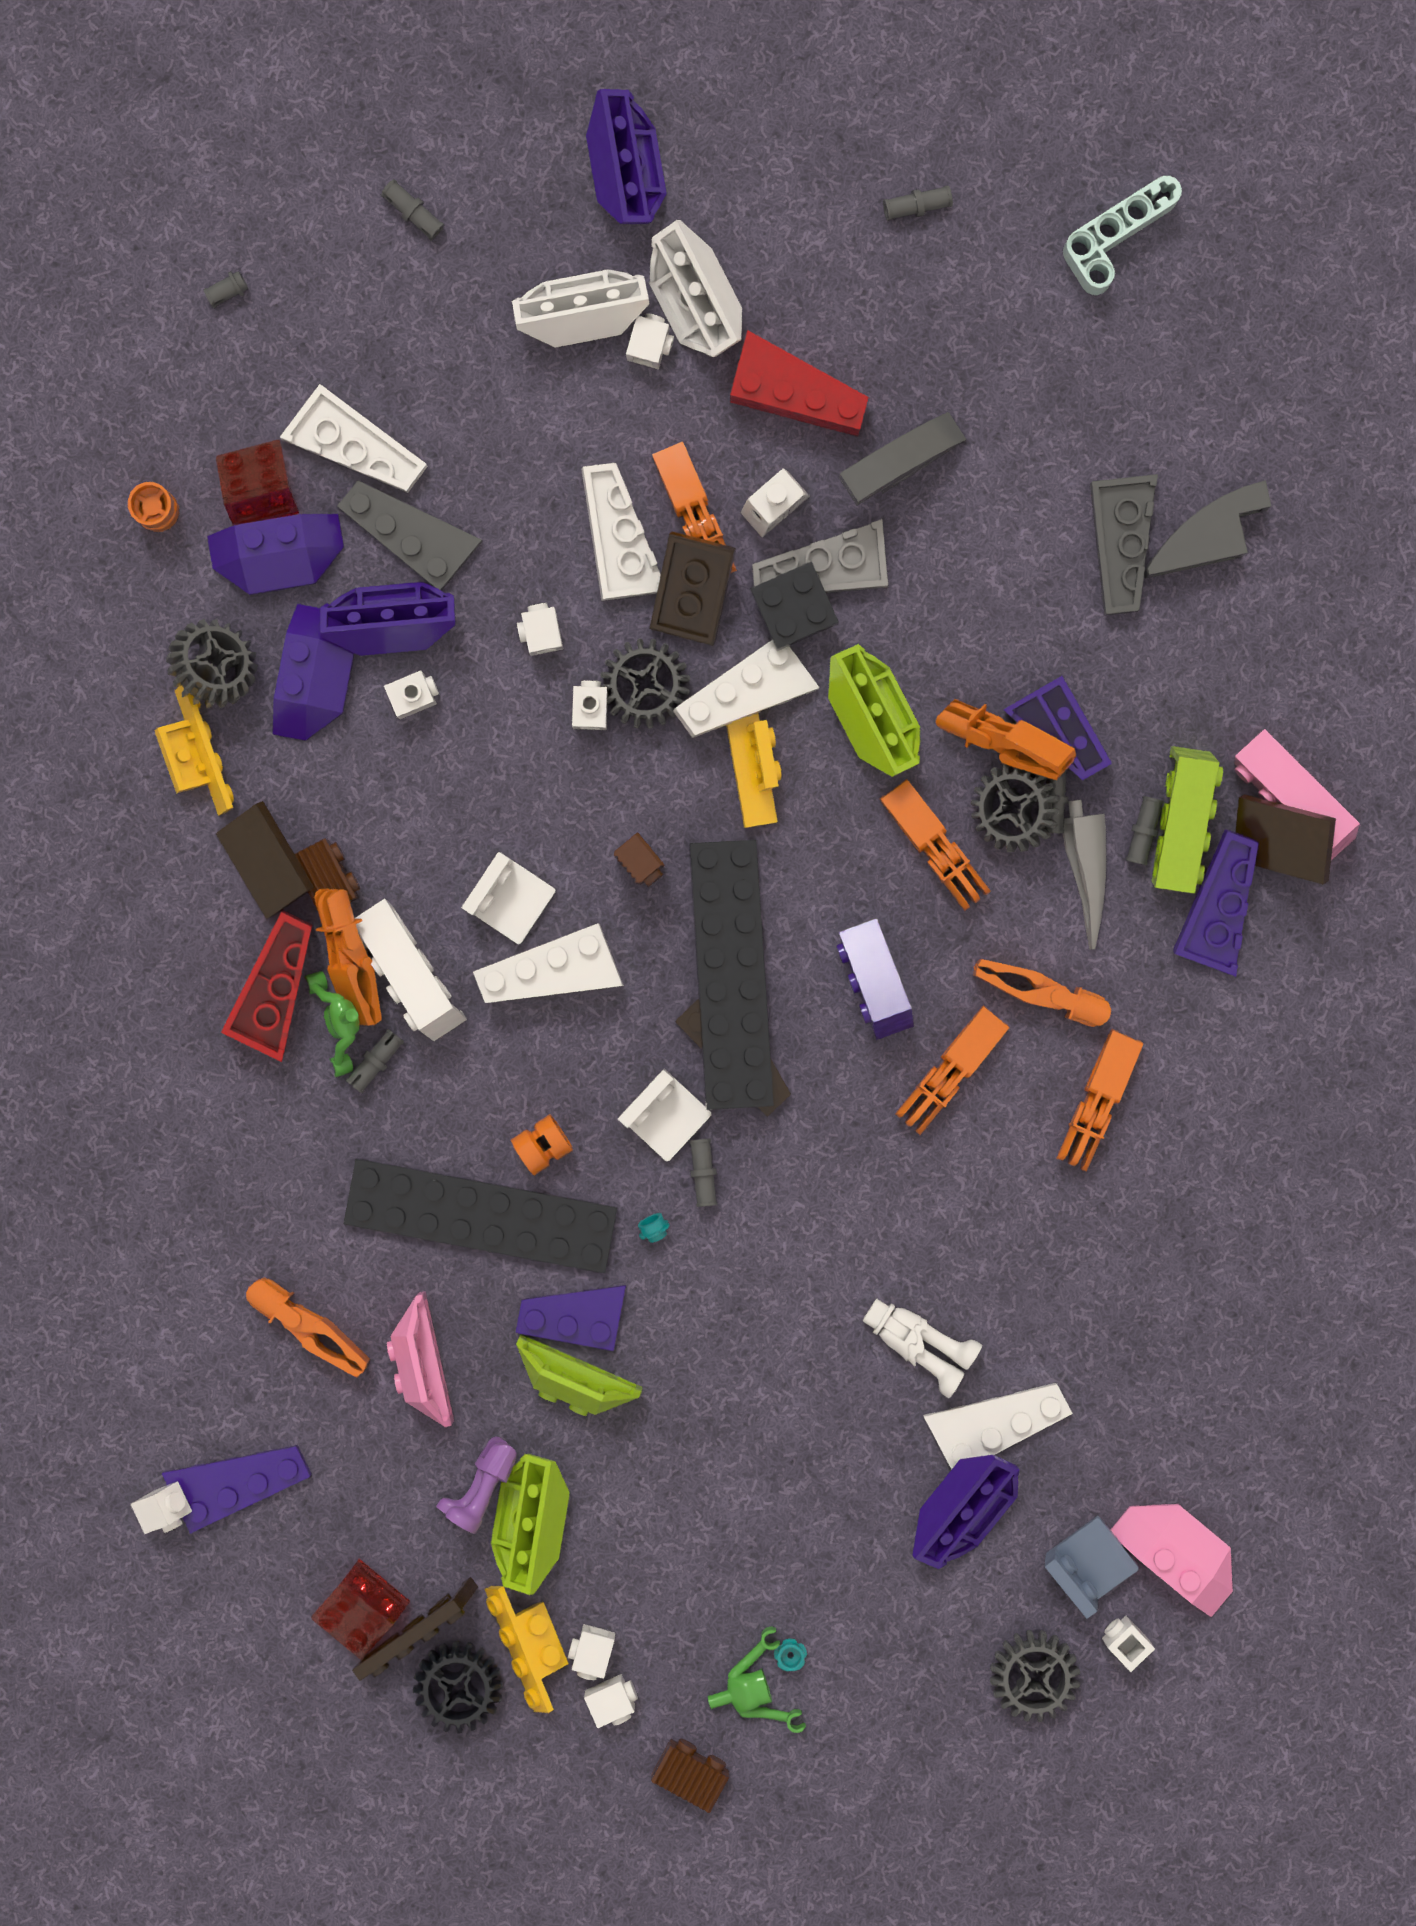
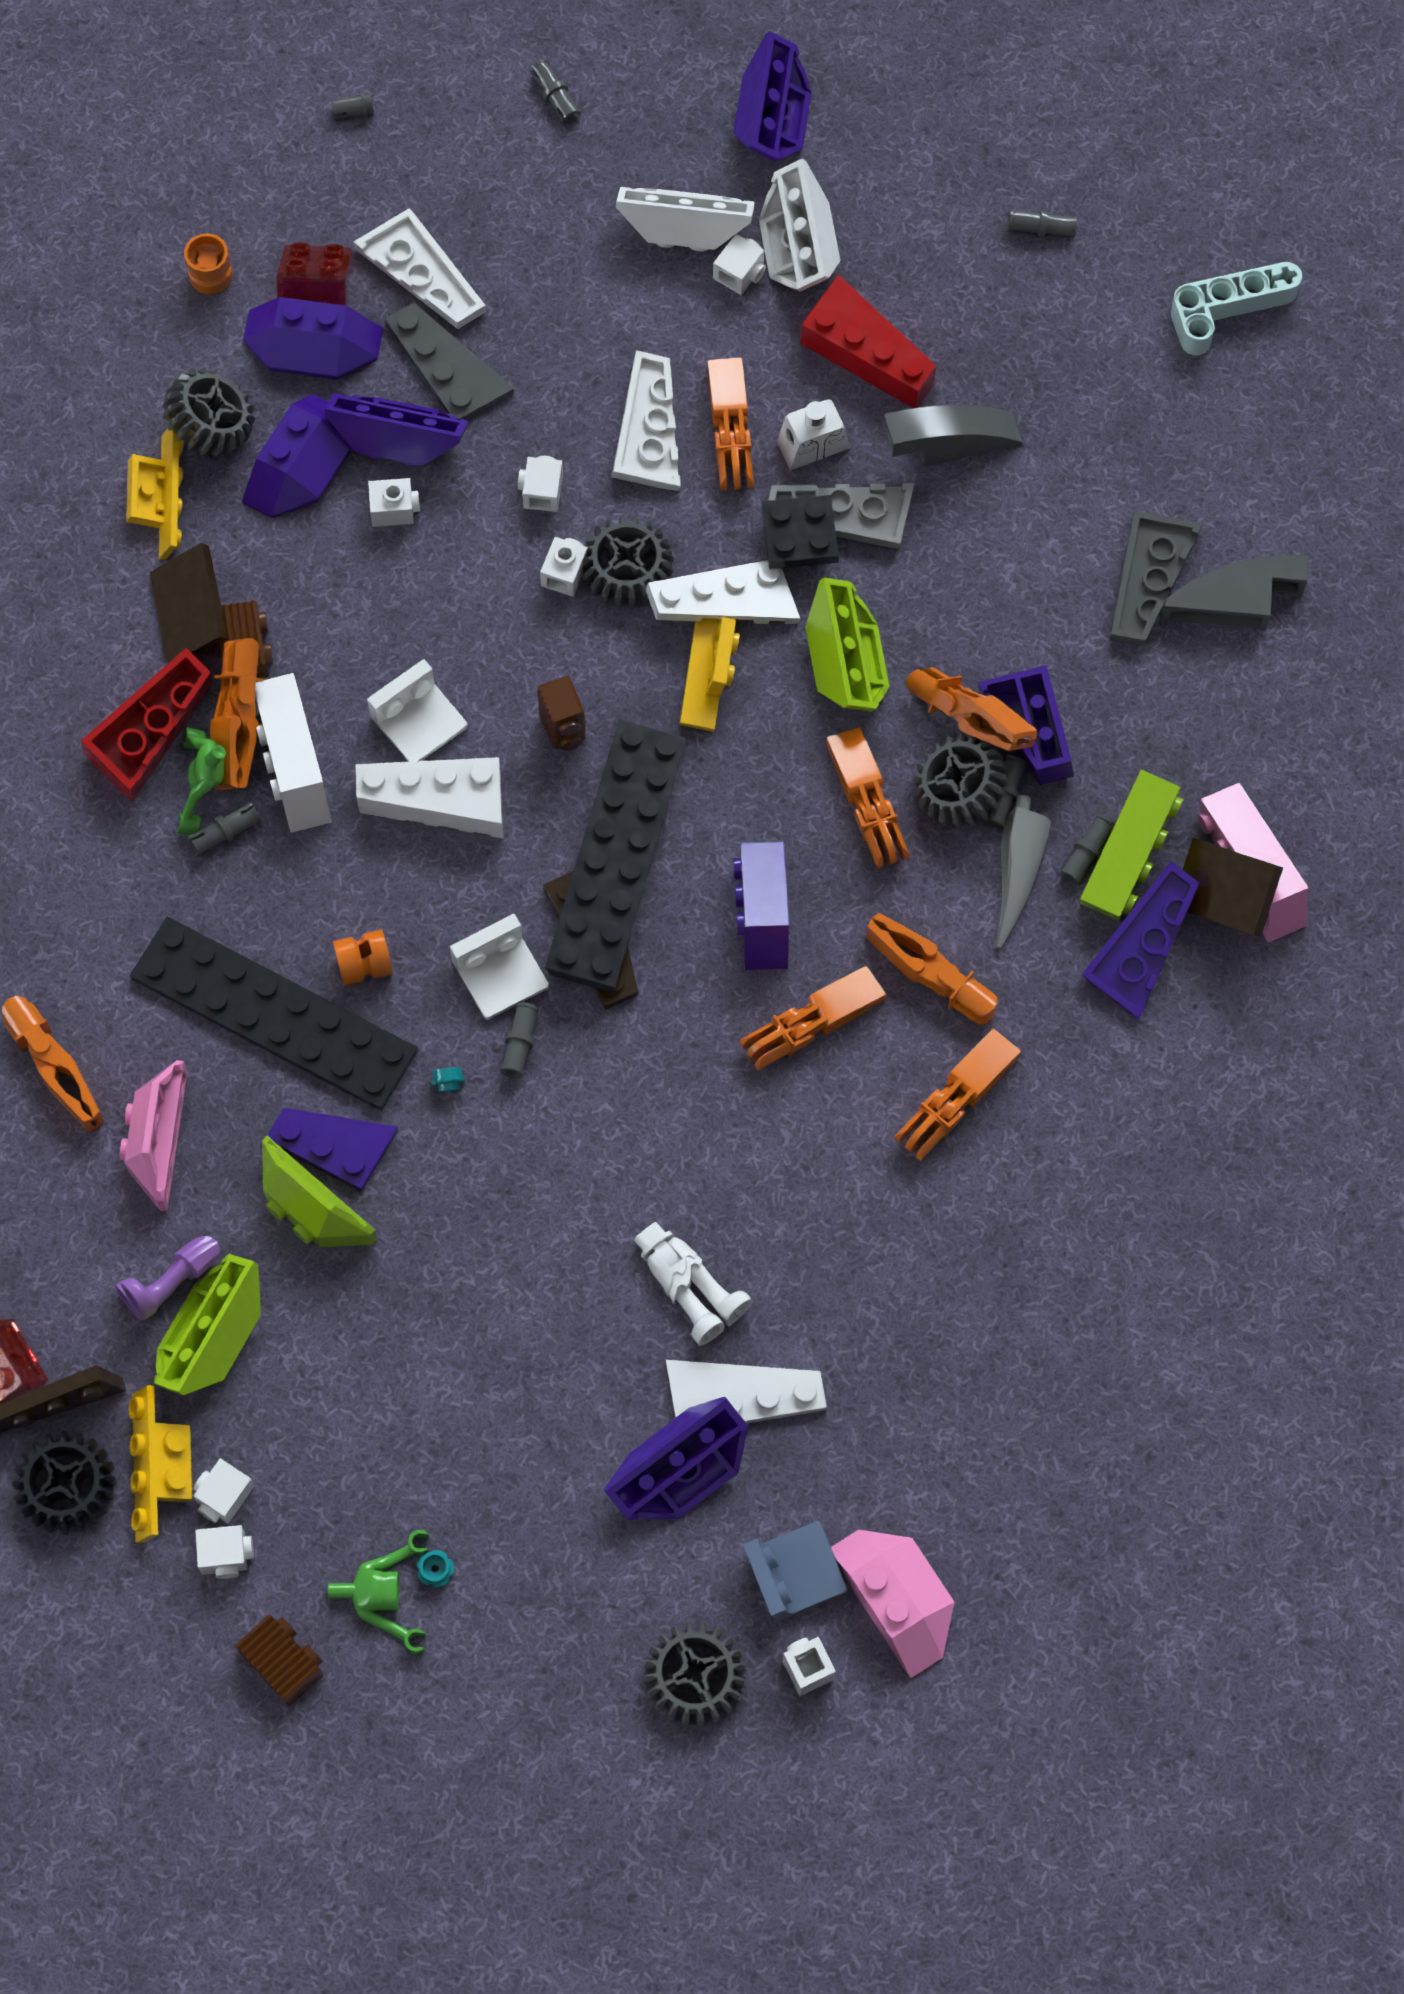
camera: 15 degrees right, 20 degrees down
(692, 588) = (704, 486): dark brown tile -> none

